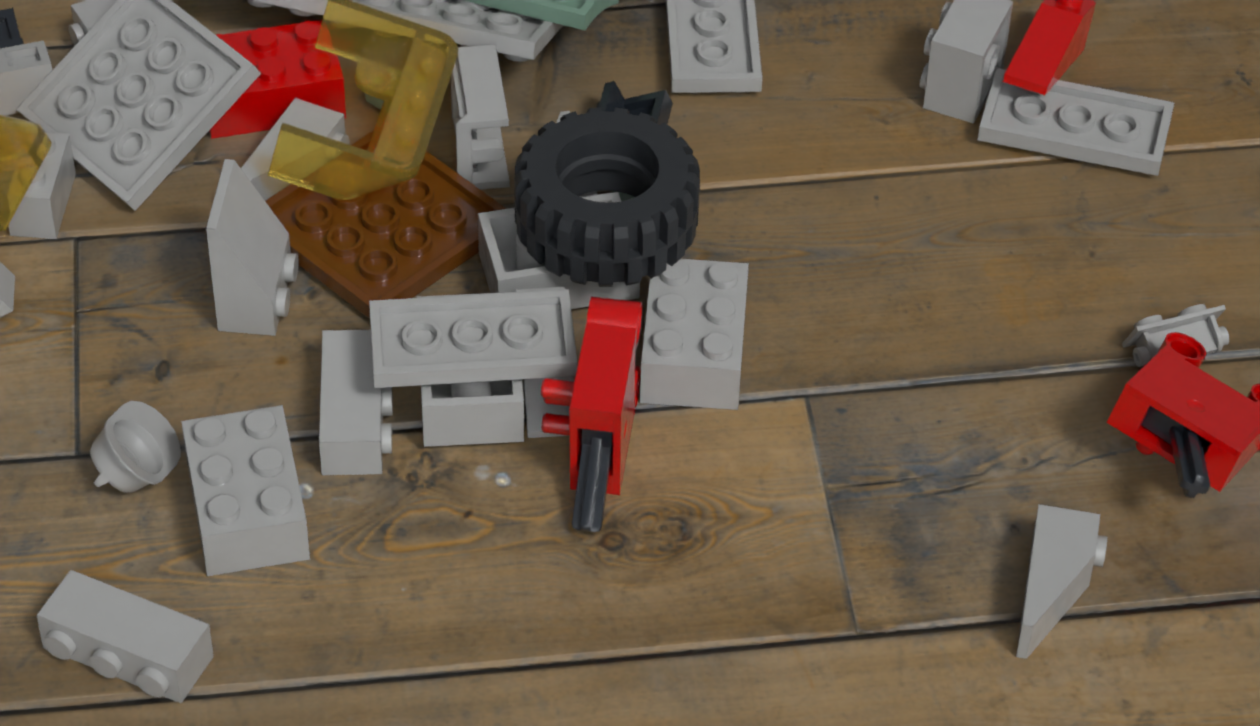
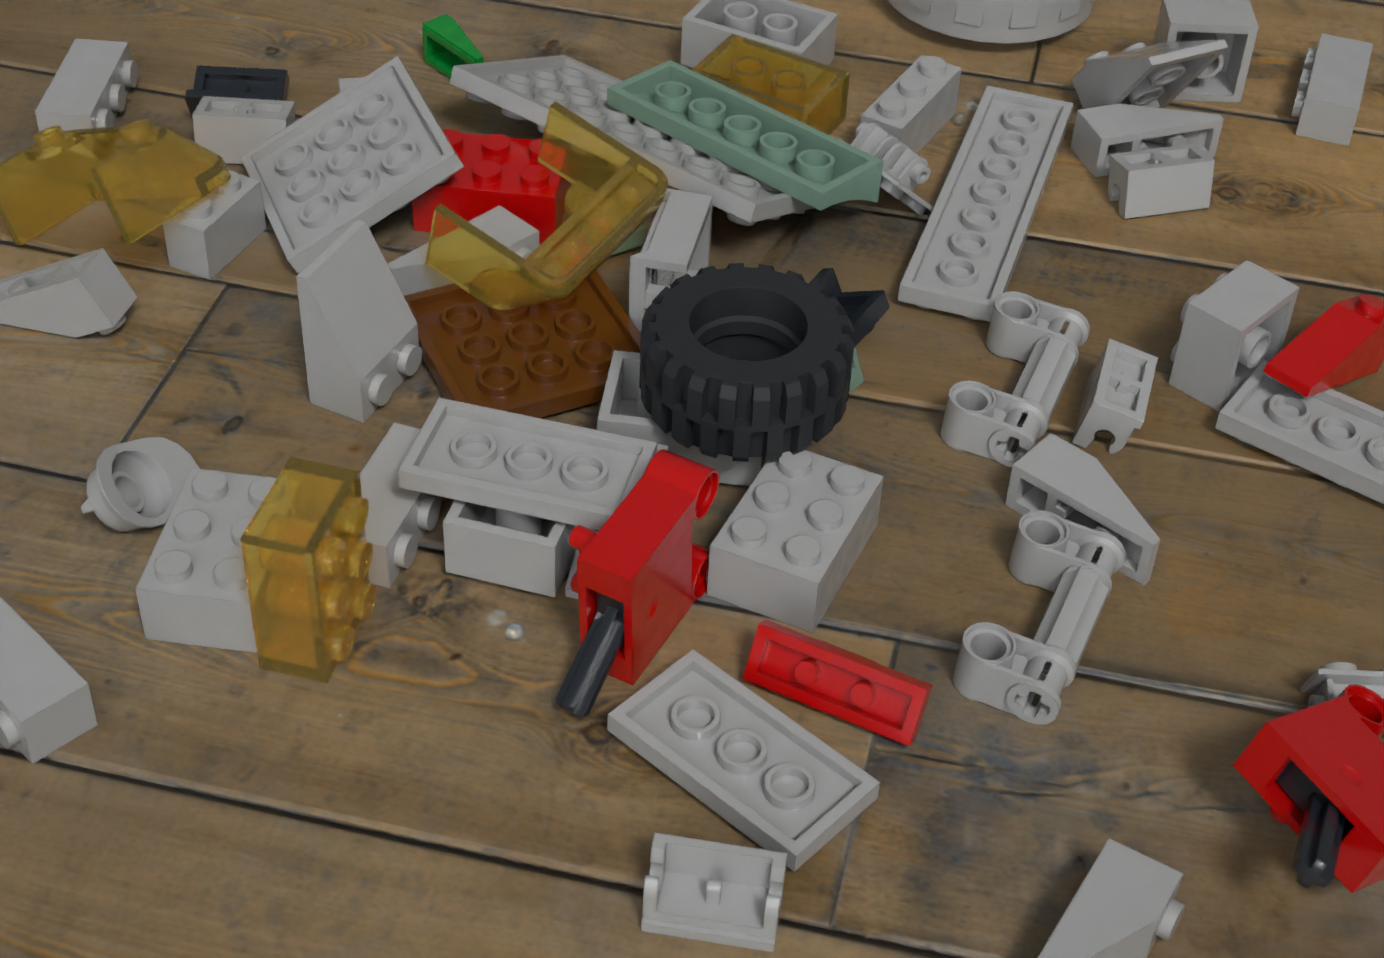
camera: 20 degrees right, 5 degrees down
(344, 478) = (308, 569): none -> clear yellow brick
(737, 525) = (743, 758): none -> light grey plate
(768, 633) = (714, 892): none -> light grey hinge
(782, 444) = (837, 682): none -> red plate
(800, 185) = (990, 420): none -> light grey piece
(891, 134) = (1116, 395): none -> light grey hinge
(902, 393) = (1010, 668): none -> light grey piece
(904, 239) = (1079, 489): none -> light grey slope

